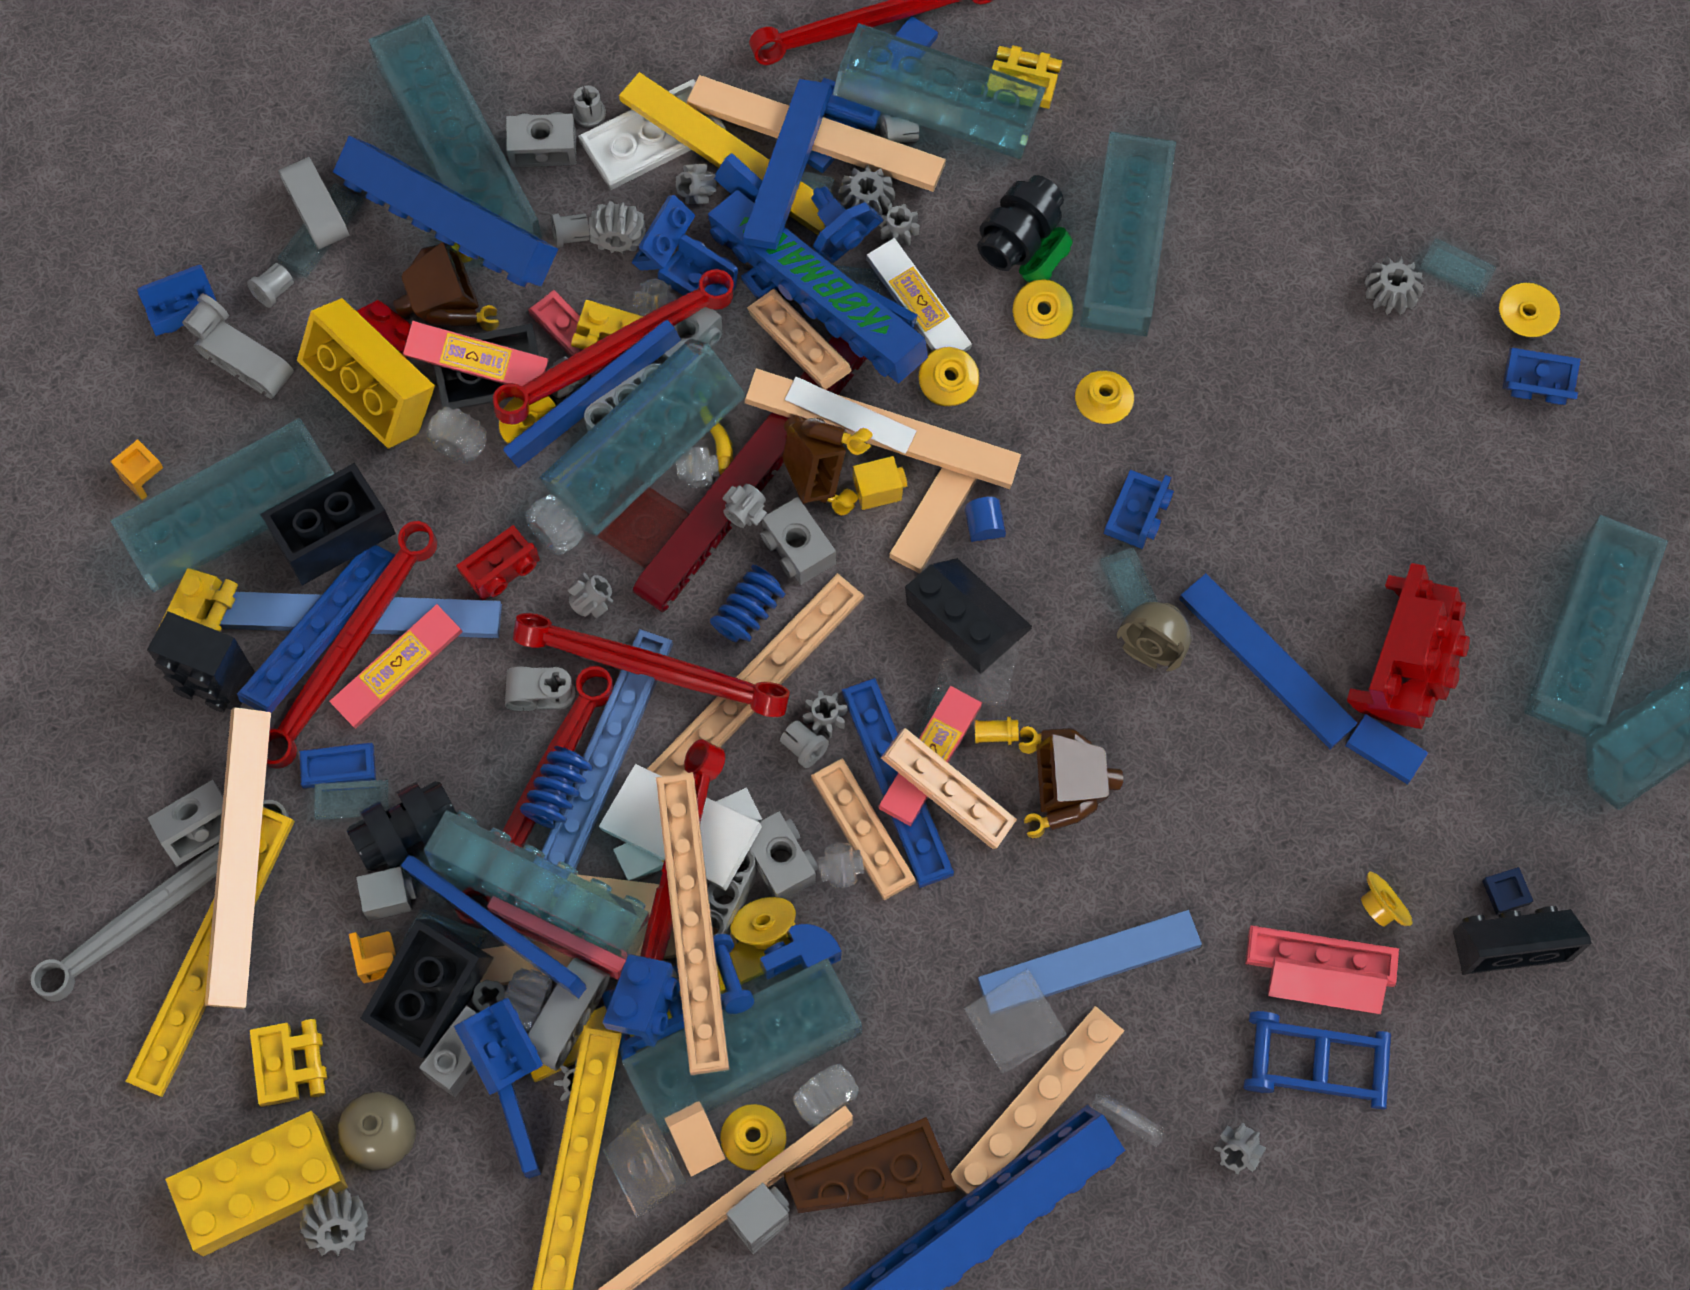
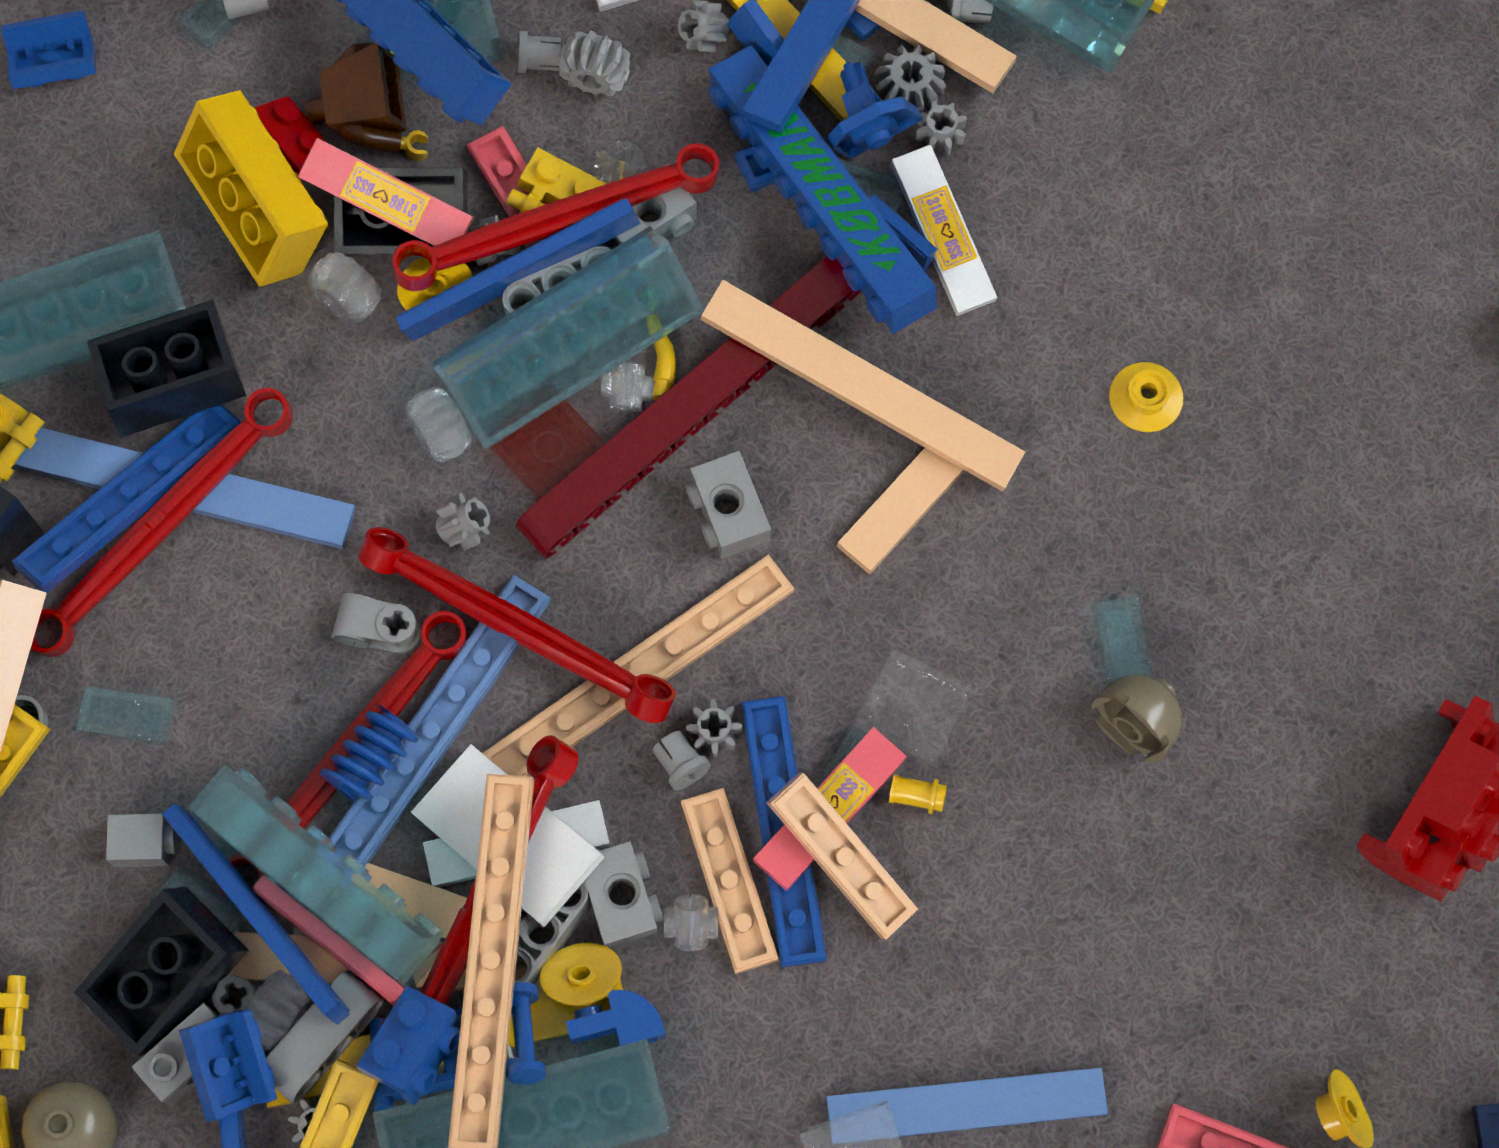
camera: 10 degrees right, 5 degrees up
(205, 316) = (73, 79): light grey bush -> none
(246, 358) = (112, 136): light grey beam -> none
(270, 284) = (163, 51): light grey bush -> none
(337, 764) = (118, 668): blue tile -> none
(372, 955) = (108, 911): light orange panel -> none
(387, 834) = (155, 769): black piece -> none
(396, 666) = (212, 561): coral tile -> none
(499, 563) = (362, 458): red bracket -> none
(663, 235) = (649, 84): blue bracket -> none
(690, 263) = (674, 128): blue bracket -> none
(744, 505) = (671, 450): light grey gear -> none
(747, 604) = (650, 573): blue piece -> none
(799, 339) = (785, 251): light nougat tile -> none
(816, 457) = (771, 409): reddish brown torso -> none
(850, 414) = (826, 361): white sticker -> none
(879, 482) = (844, 451): yellow brick -> none
(938, 387) = (940, 339): yellow piece -> none
(965, 612) = (914, 636): black slope -> none
(984, 519) = (963, 523): blue brick -> none
(1015, 229) = (1103, 146): black piece -> none
(1027, 314) = (1073, 267): yellow piece -> none
(1048, 256) = (1113, 204): green plate -> none
(1070, 776) = (993, 871): torso -> none
(1128, 234) = (1221, 197): clear light blue brick -> none
(1137, 509) = (1153, 548): blue bracket -> none
(1268, 661) = (1271, 775): blue tile -> none
(1386, 749) = (1392, 917): blue tile -> none

